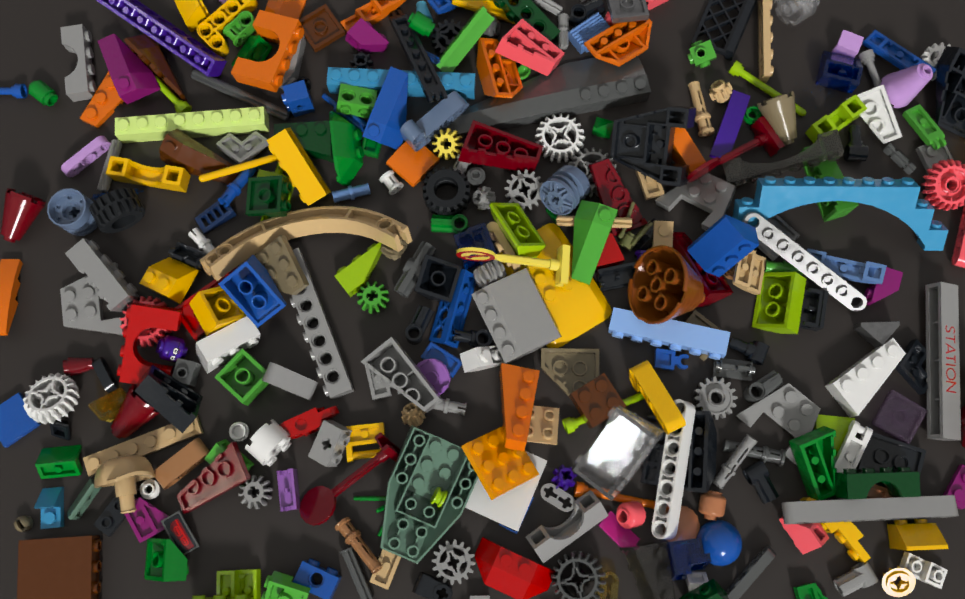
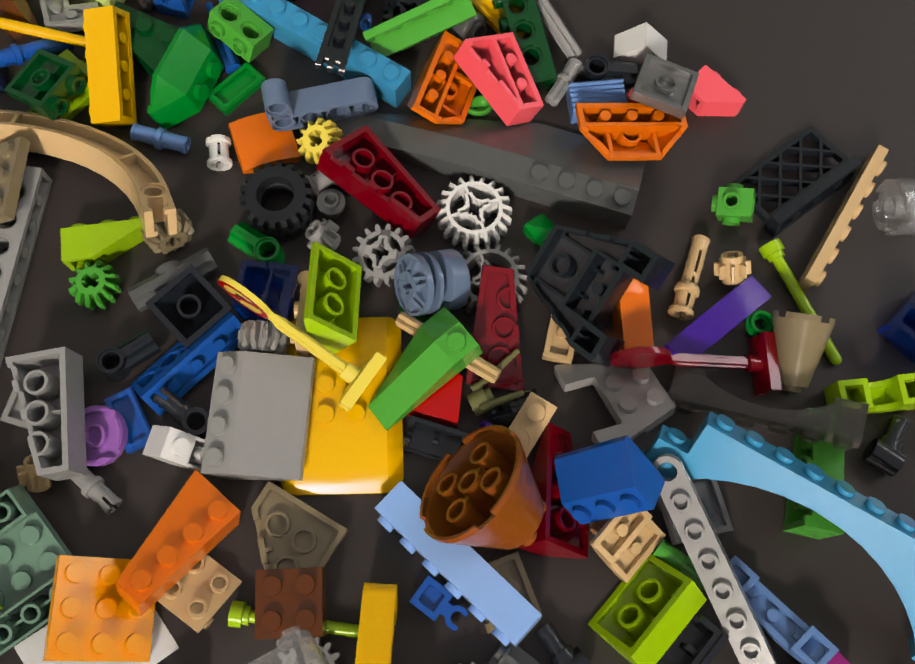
camera: 25 degrees right, 5 degrees down
(389, 110) = (268, 56): blue wedge -> none

